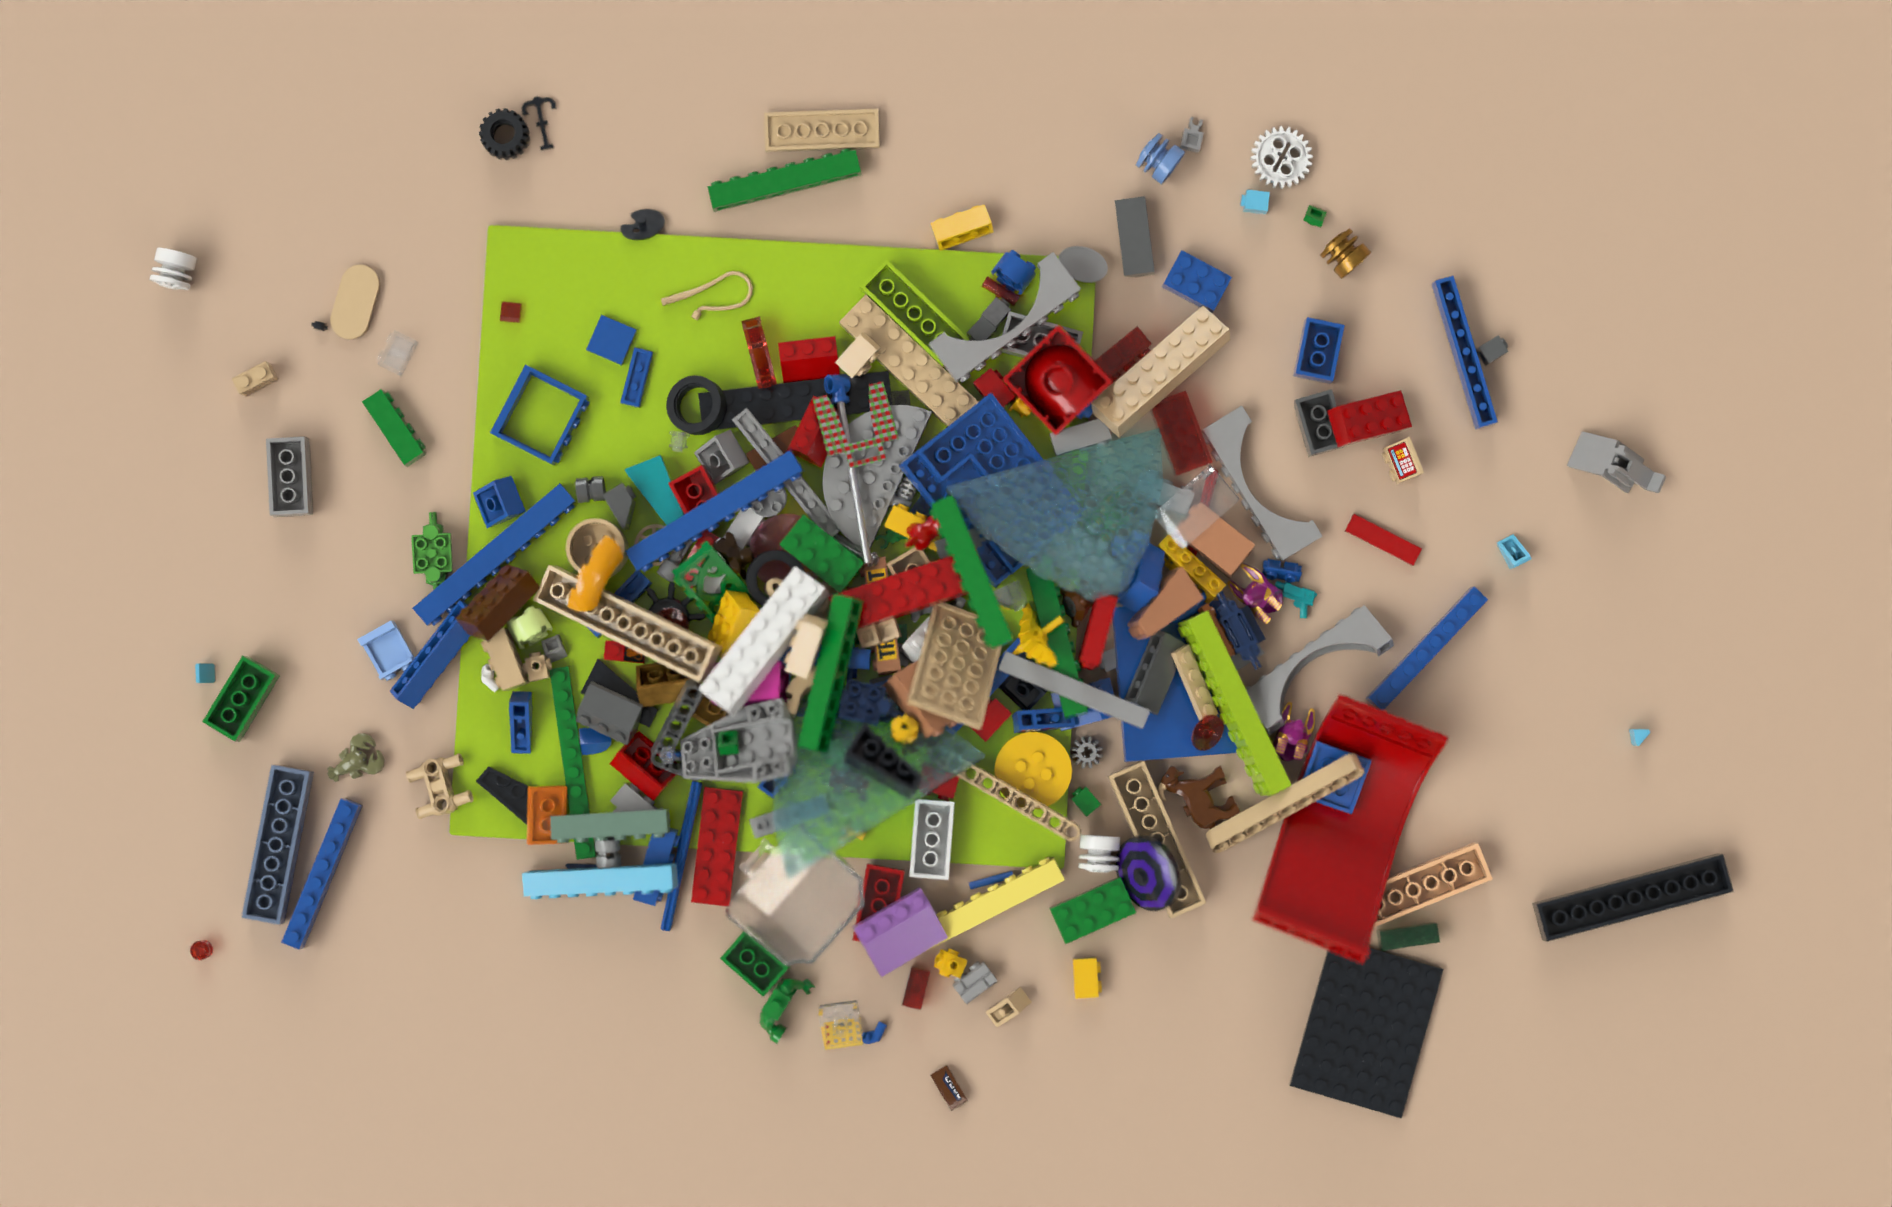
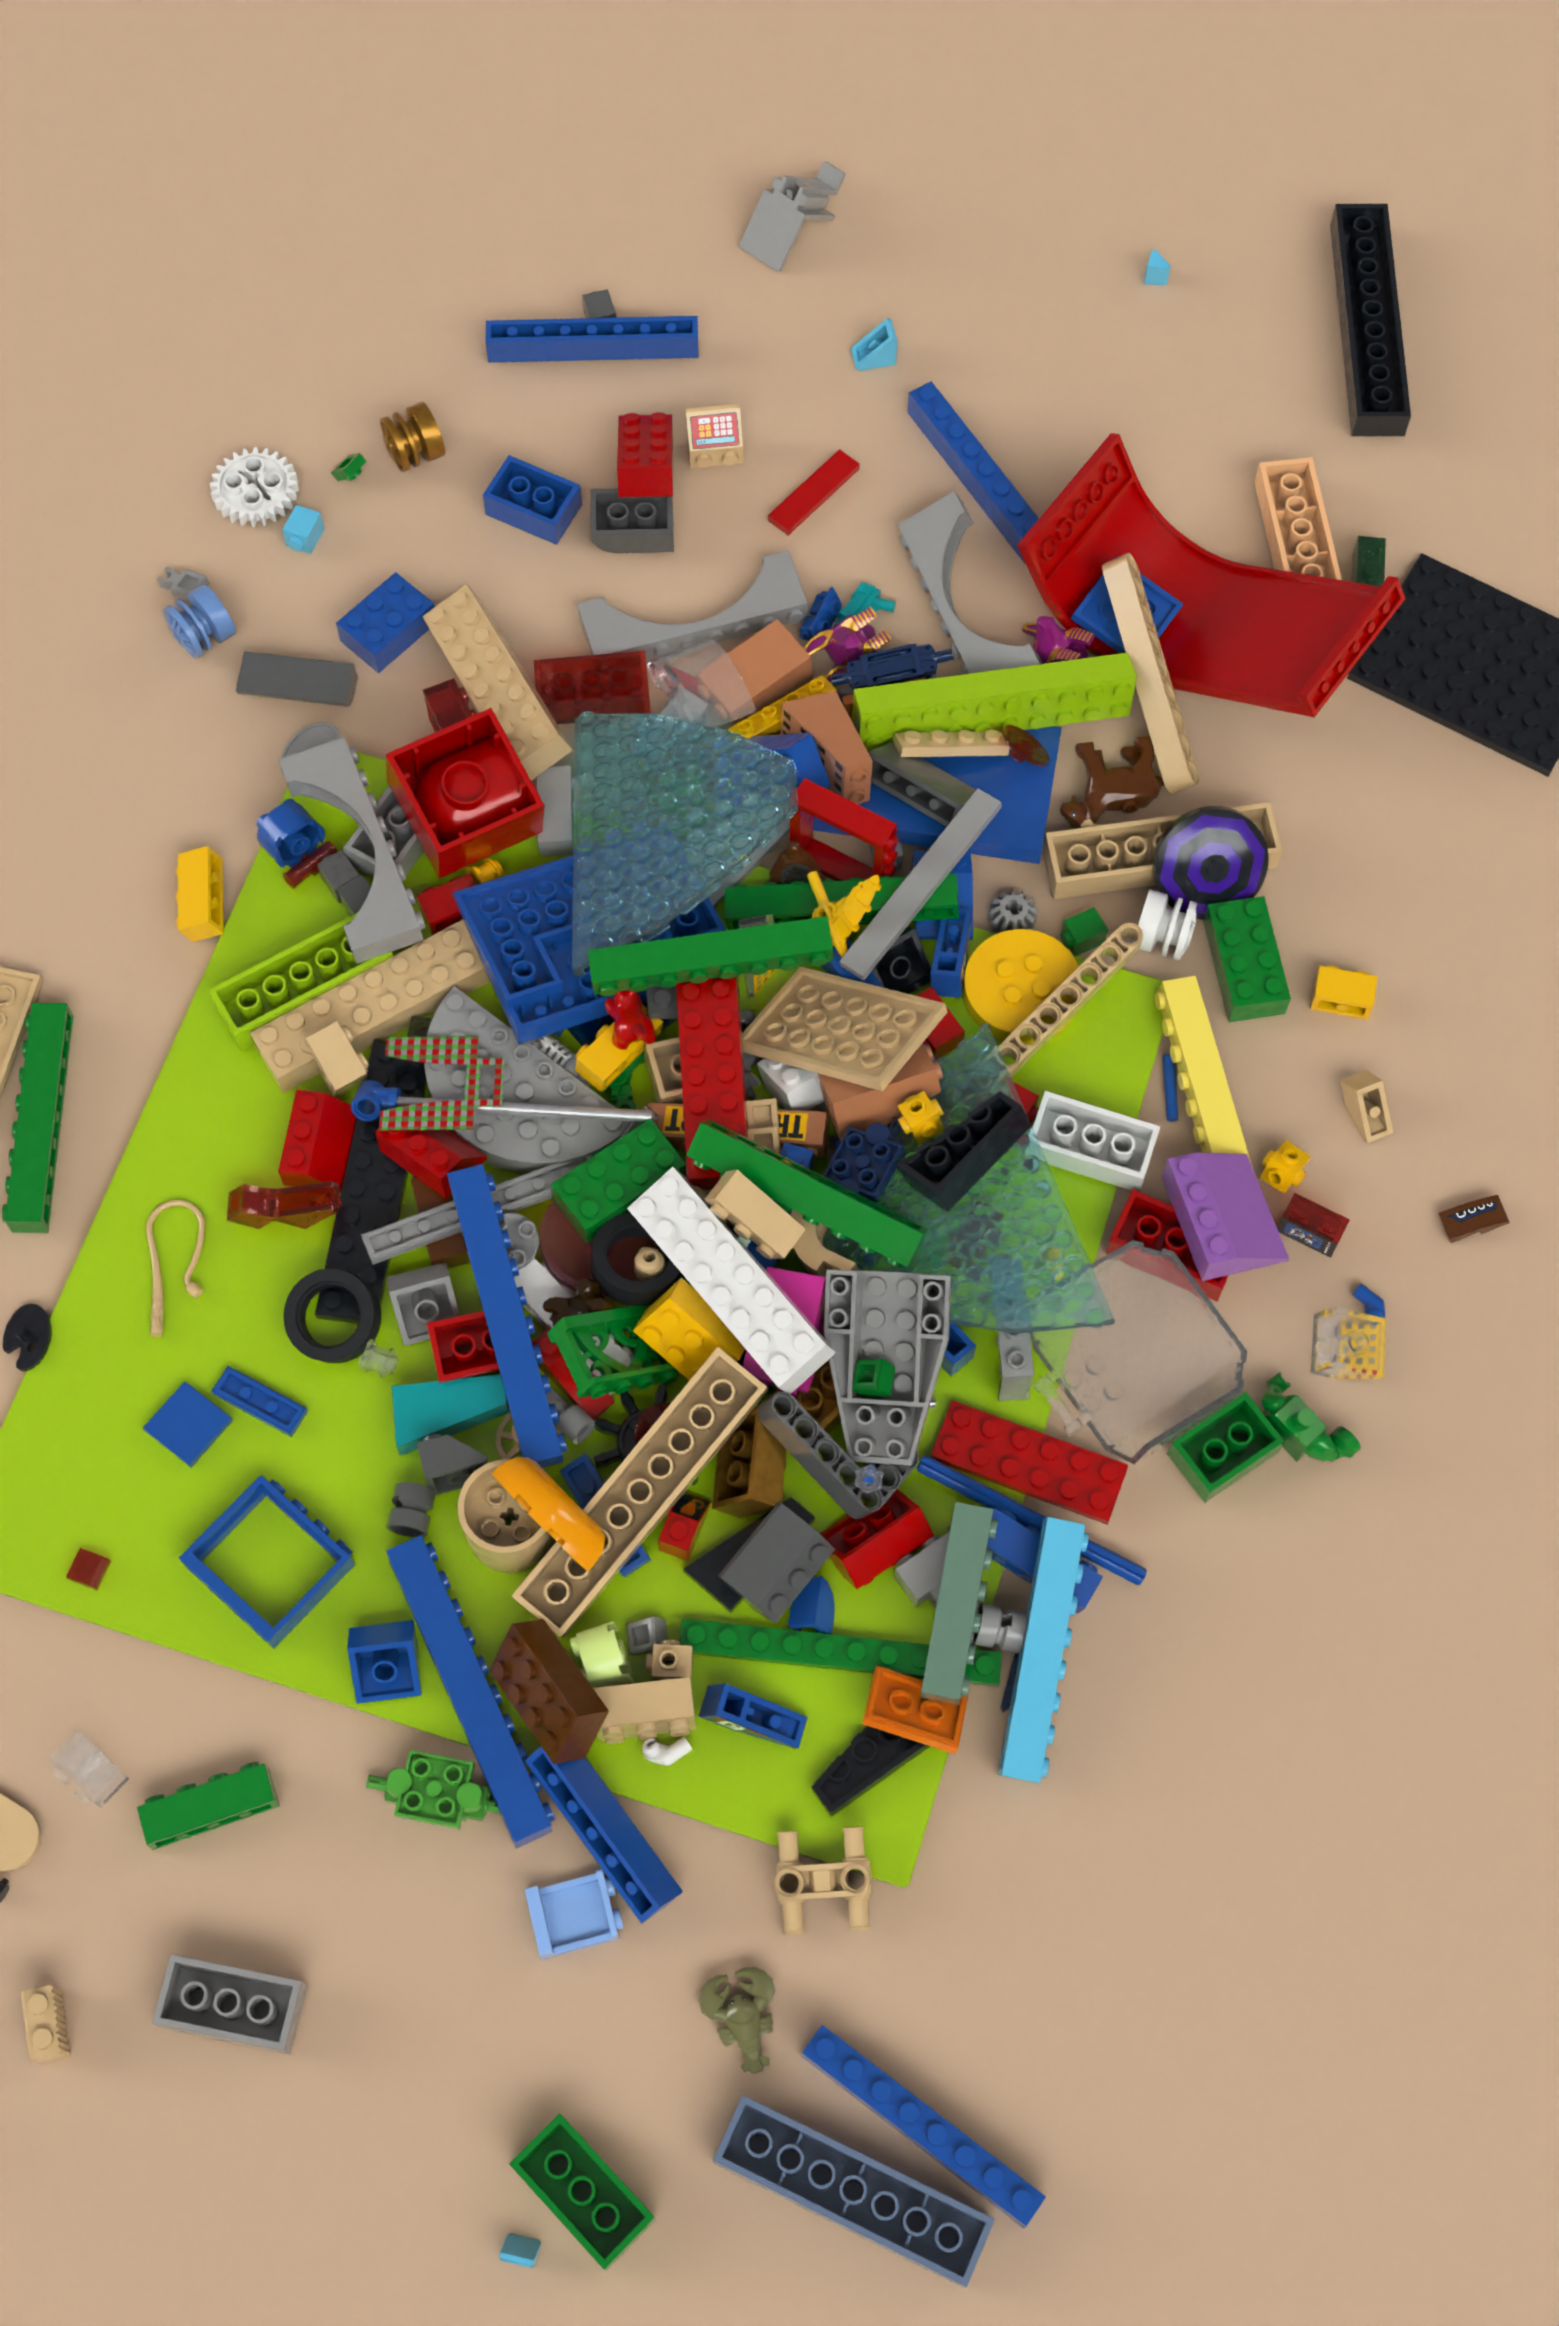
camera: 75 degrees left, 20 degrees down
(974, 982) = (1320, 1139): light grey brick -> none

